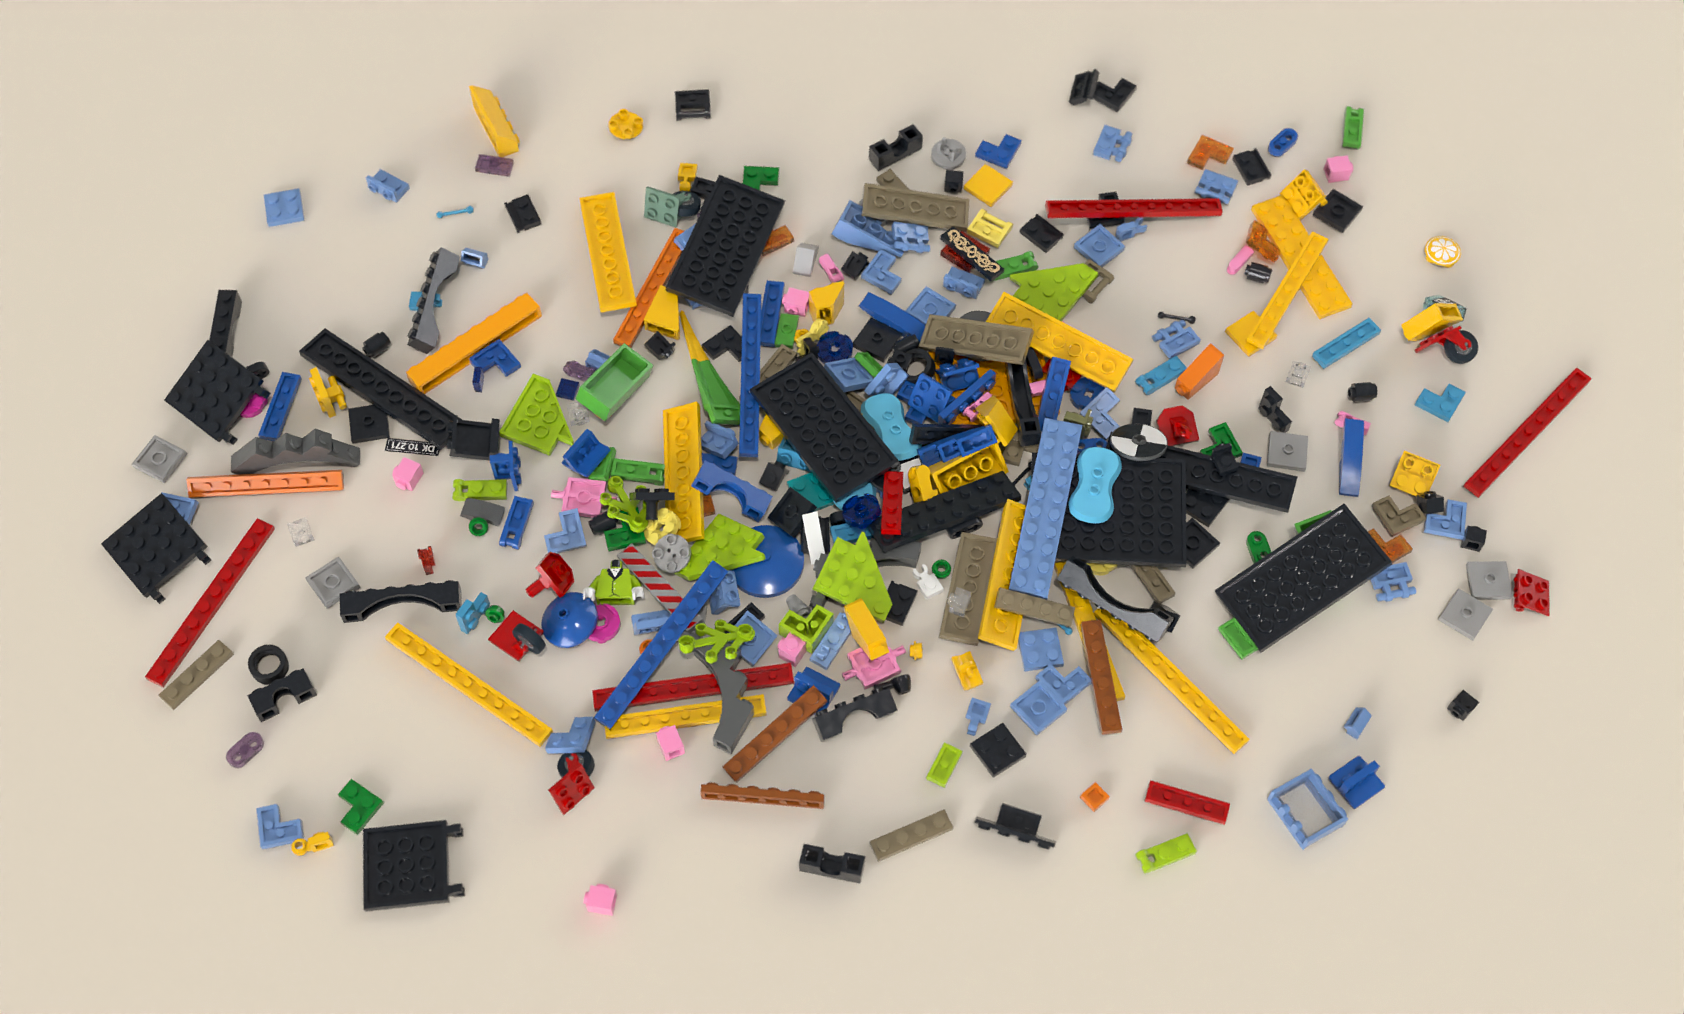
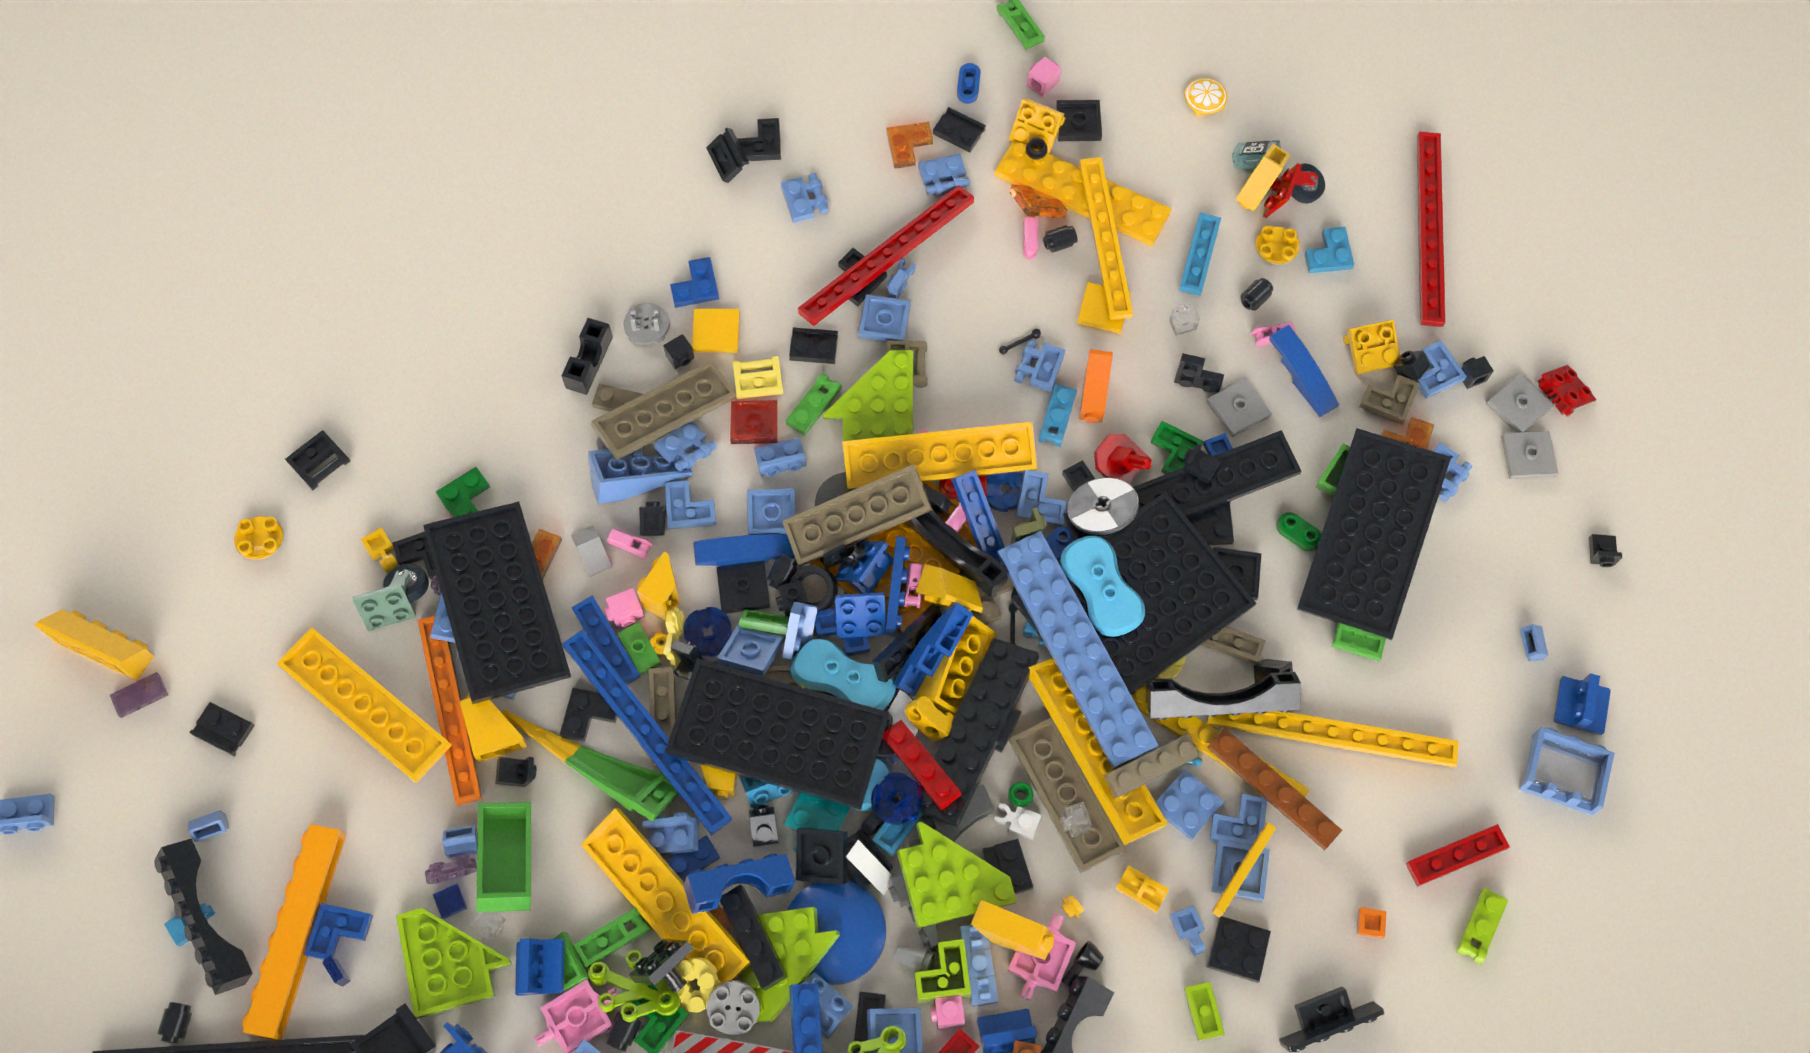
camera: 40 degrees left, 5 degrees up
(469, 209) = (151, 770): dark azure hinge -> none
(715, 525) = (753, 937): none -> black plate
(954, 359) = (852, 555): none -> black plate
(972, 254) = (766, 420): black tile -> none
(1038, 703) = (1243, 870): none -> yellow tile
(1293, 205) = (1039, 144): none -> black plate
(1406, 372) = (1277, 244): none -> yellow dish

